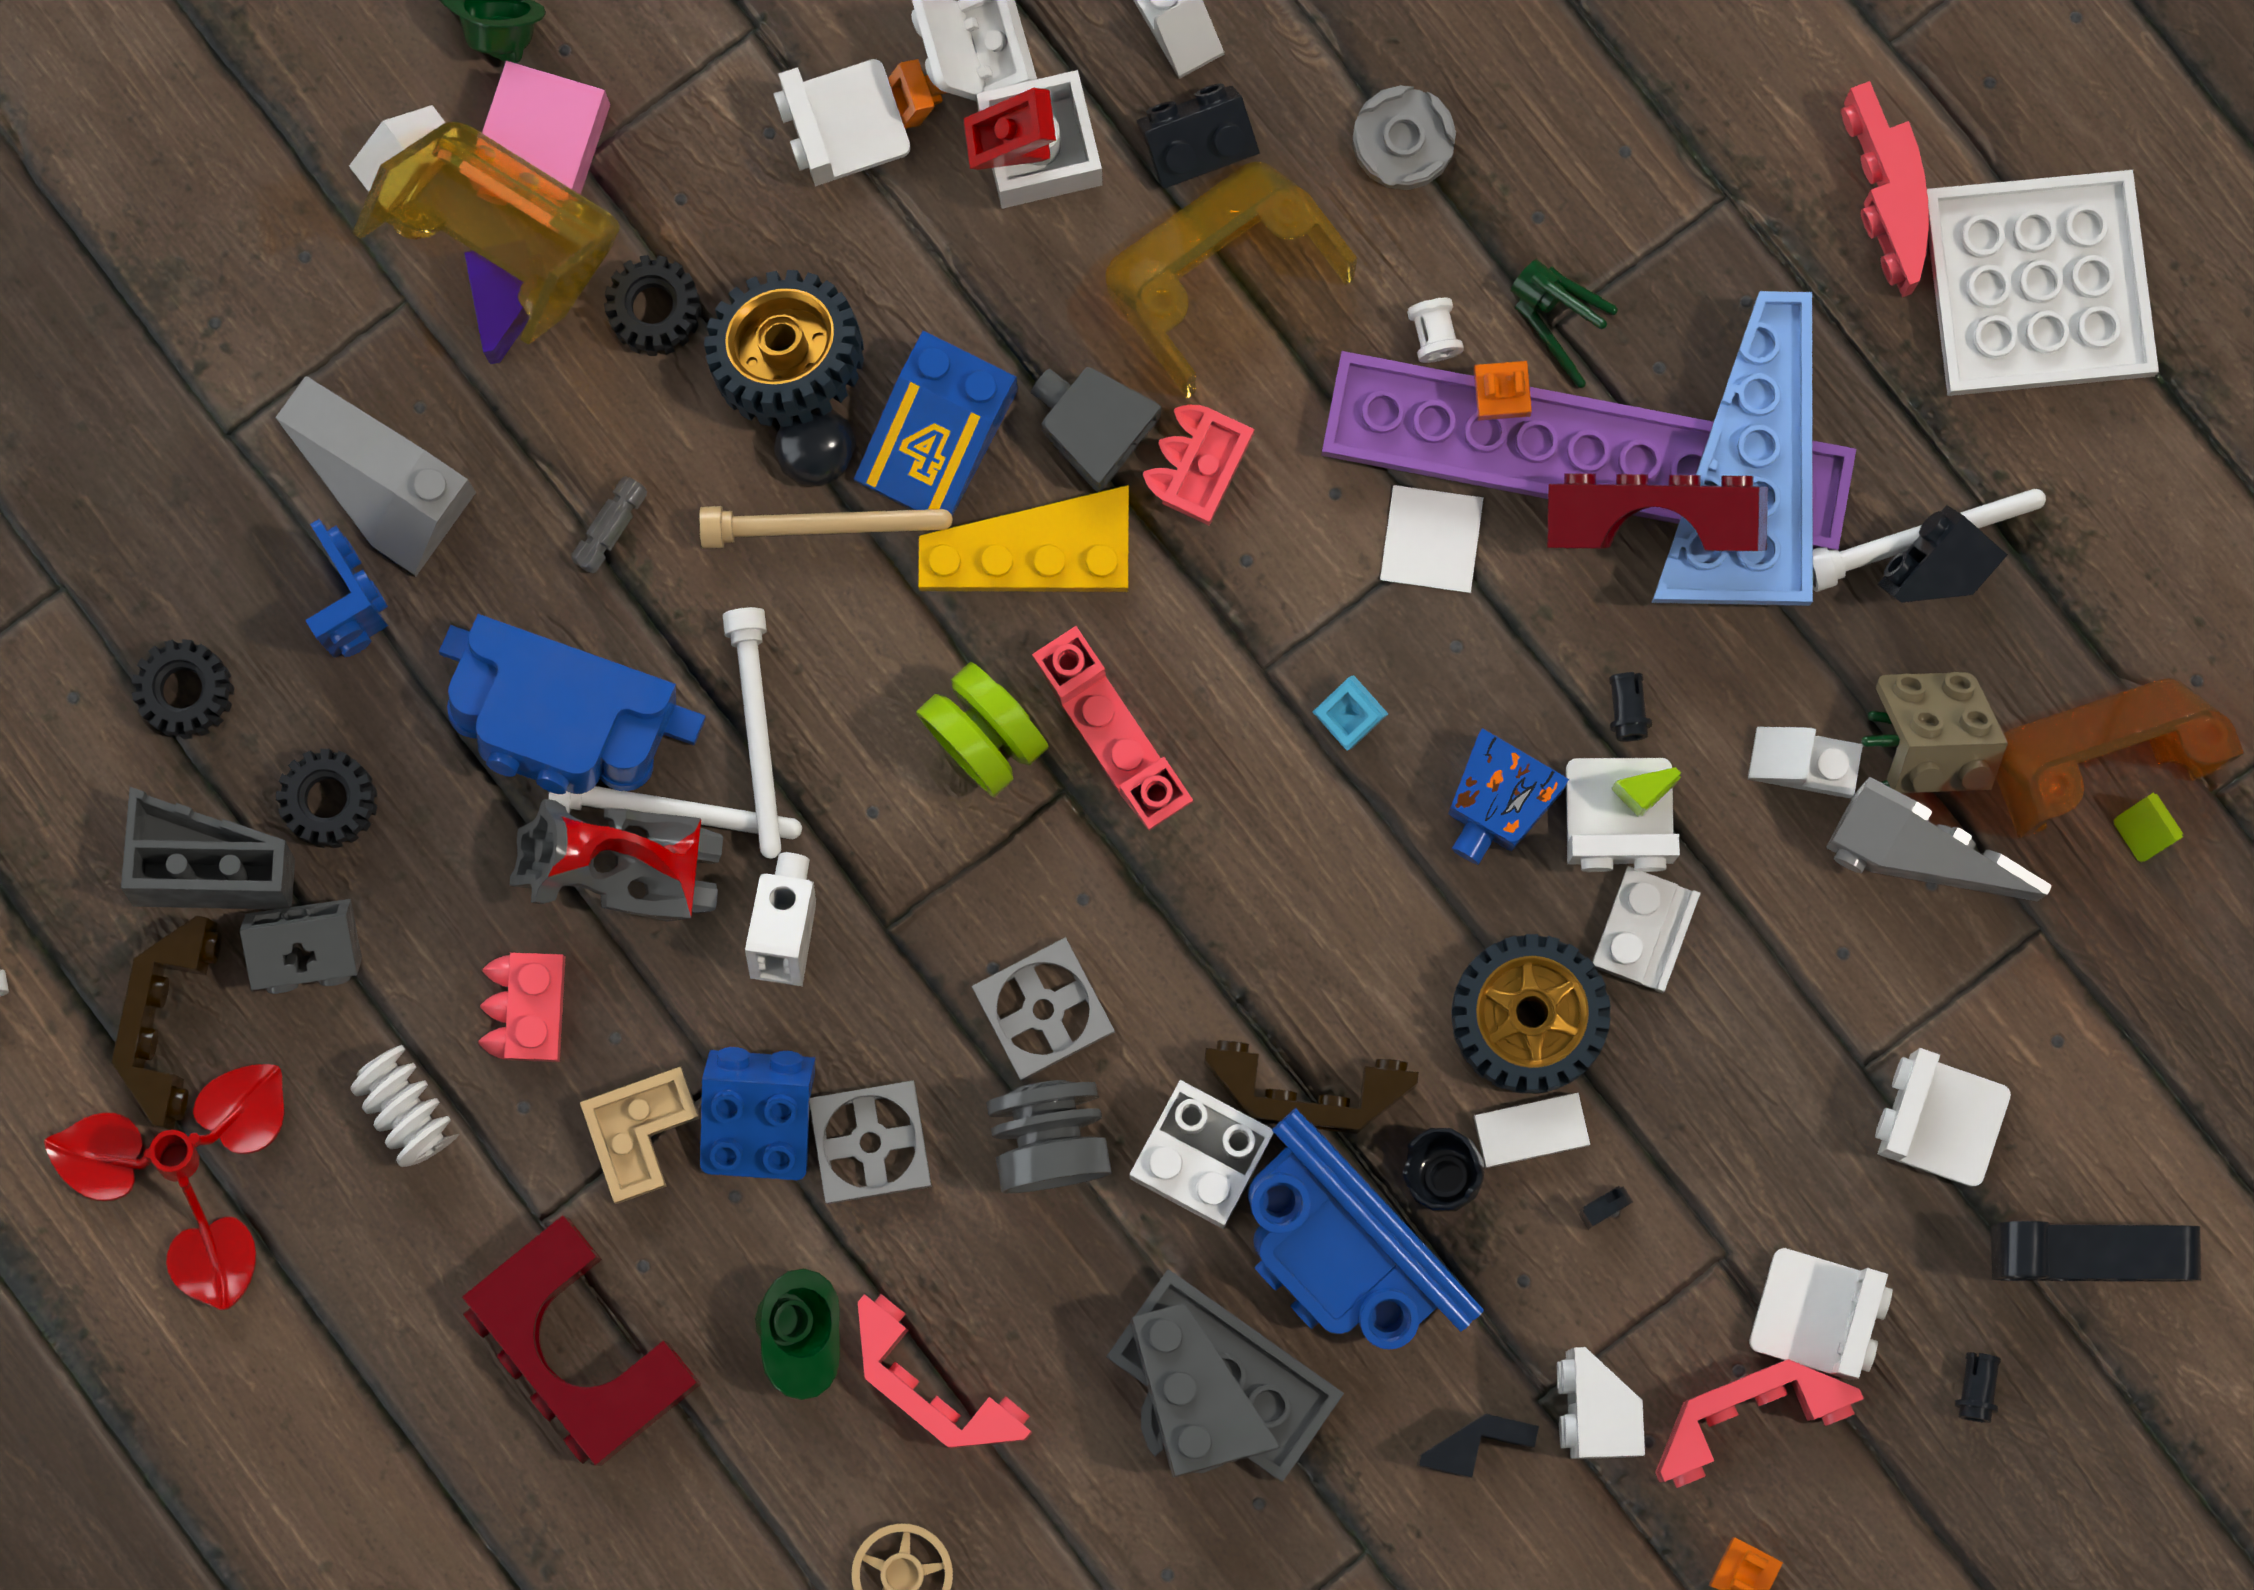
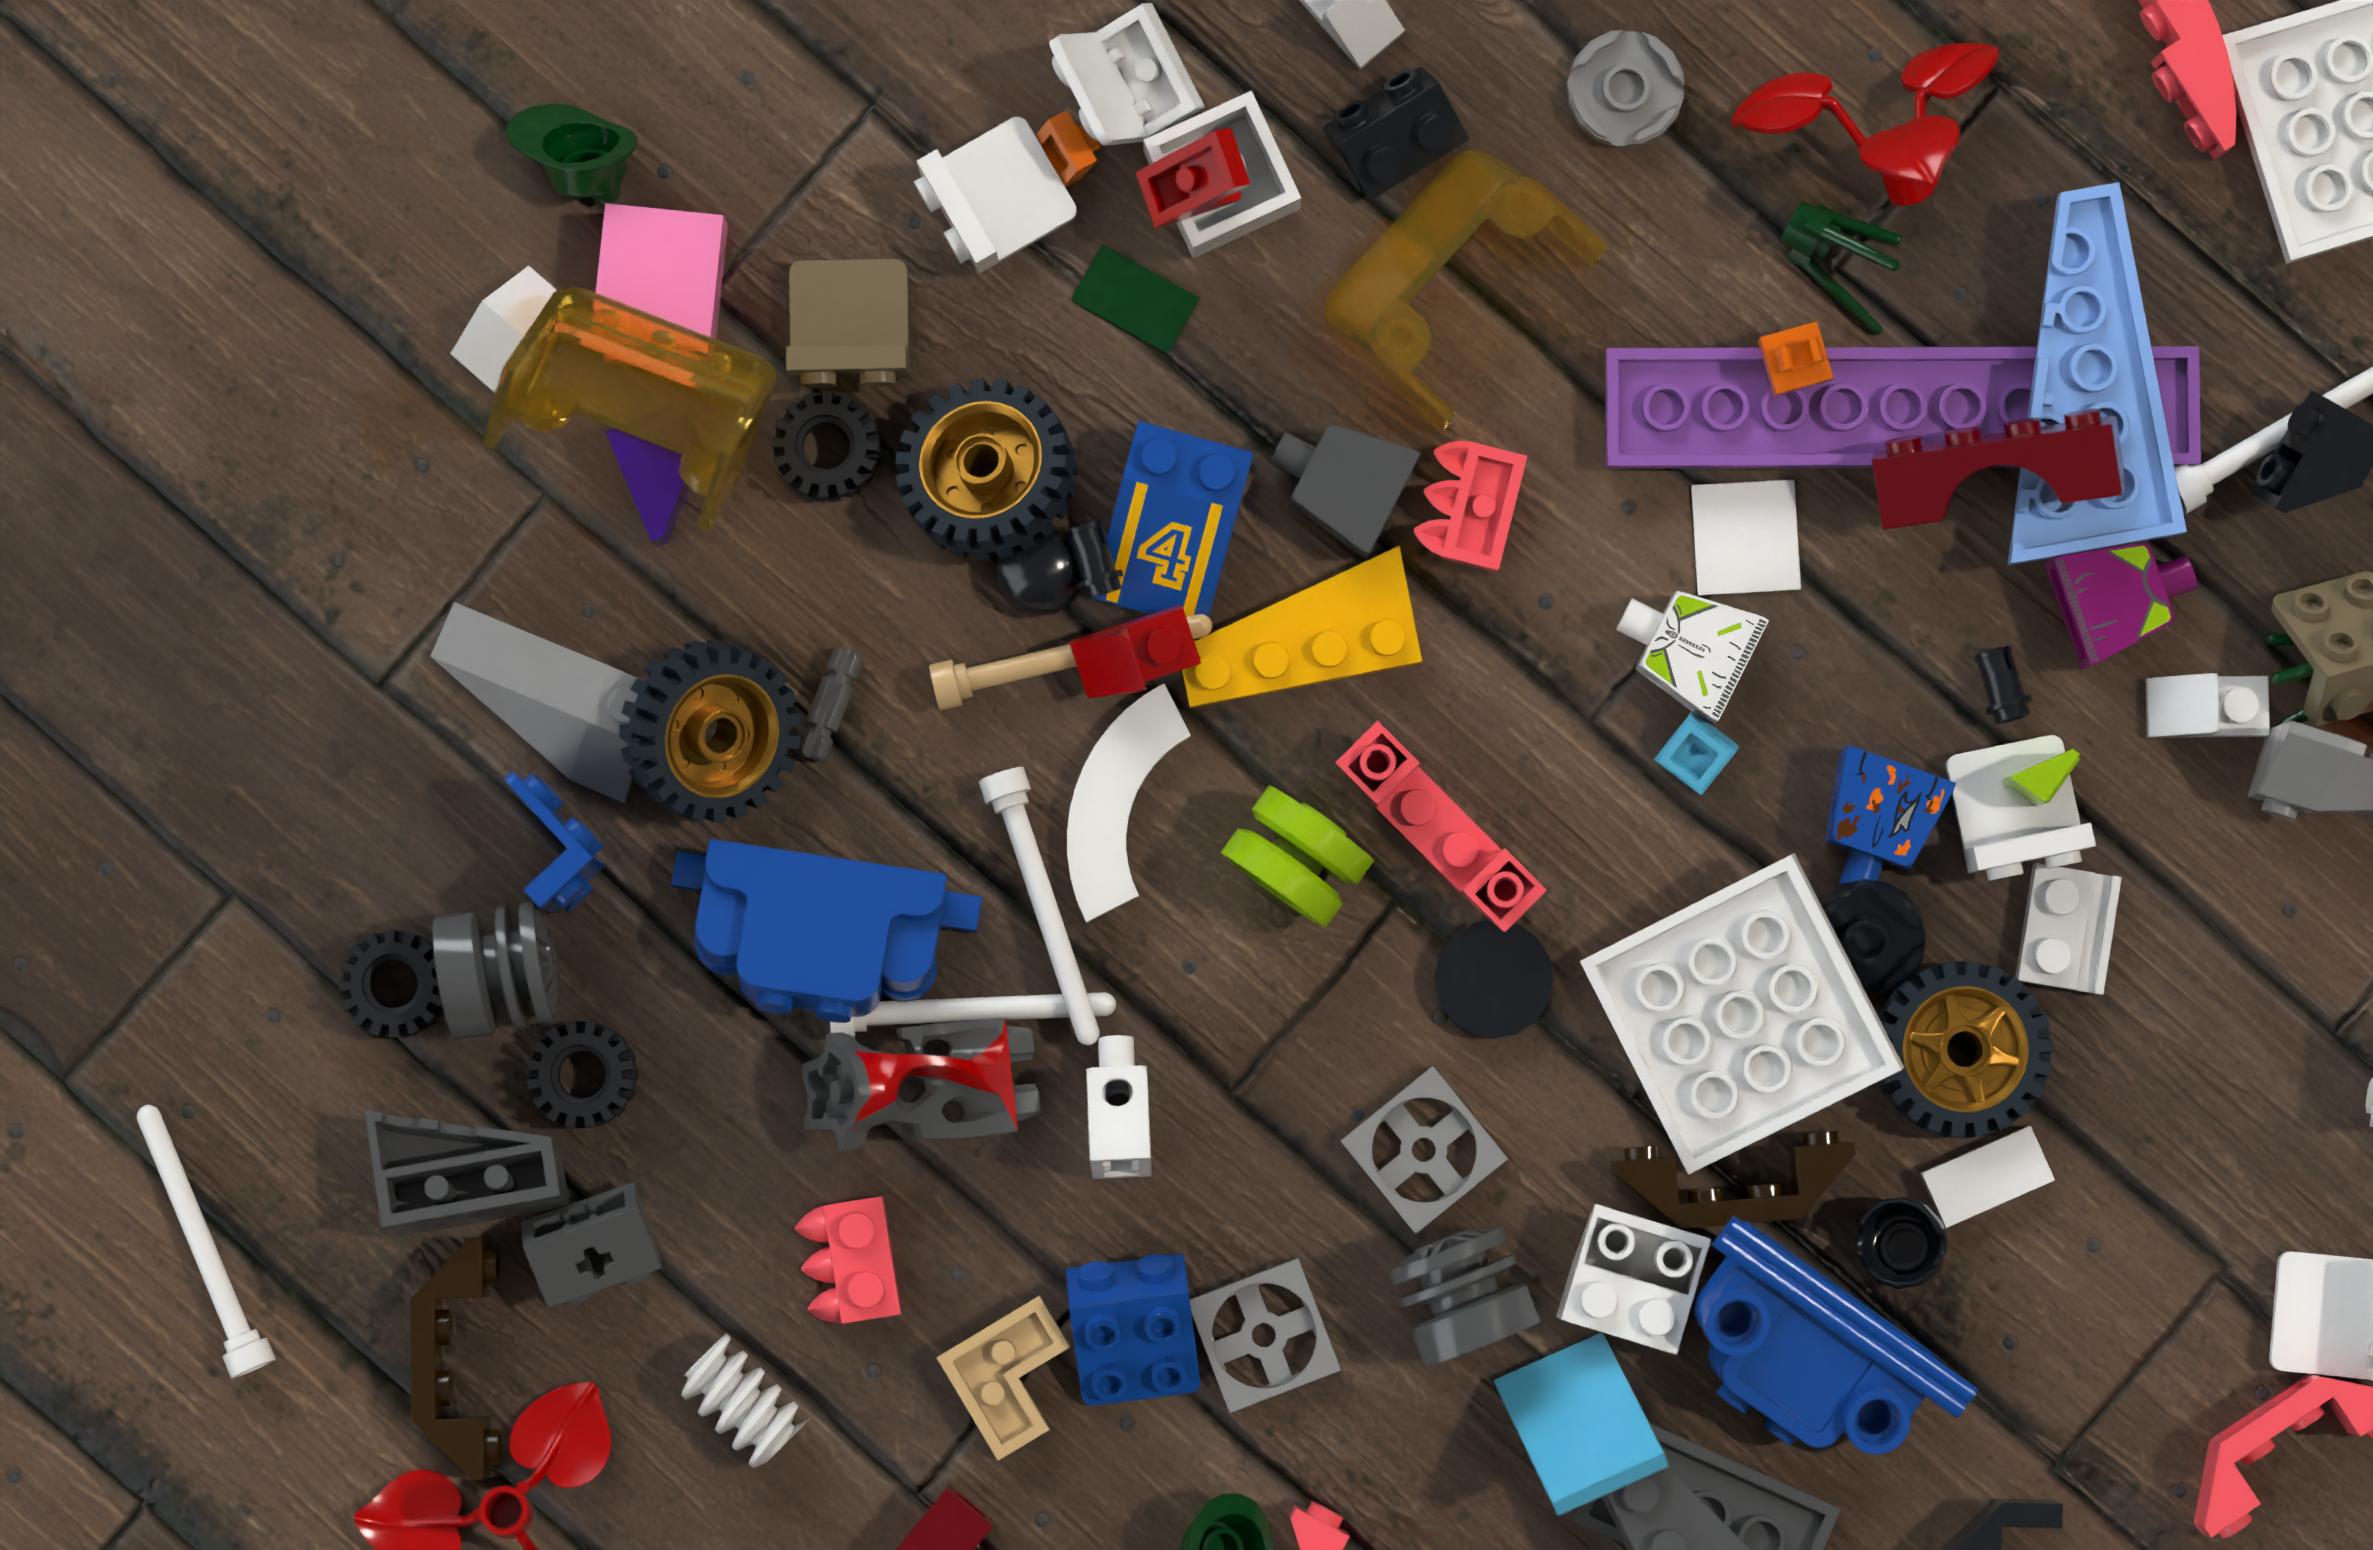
camera: 15 degrees left, 5 degrees up
(281, 690) = (495, 970): none -> dark grey wheel
(461, 513) = (671, 722): none -> wheel
(694, 204) = (848, 322): none -> dark tan bracket
(830, 649) = (1106, 796): none -> white tile
(861, 443) = (1094, 559): none -> black pin
(880, 529) = (1135, 652): none -> red slope
(945, 234) = (1135, 299): none -> dark green sticker
(1128, 1268) = (1580, 1423): none -> medium azure tile
(1134, 873) = (1493, 979): none -> black tile
(1342, 942) = (1741, 1014): none -> white plate
(1366, 622) = (1694, 649): none -> white torso
(1435, 330) = (1705, 303): white bush -> none
(1465, 899) = (1878, 931): none -> black tile
(1602, 1410) = (2128, 1479): white slope -> none
(1605, 1206) = (2084, 1245): black tile -> none
(1624, 226) = (1907, 155): none -> red plant
(1742, 649) = (2116, 597): none -> magenta torso

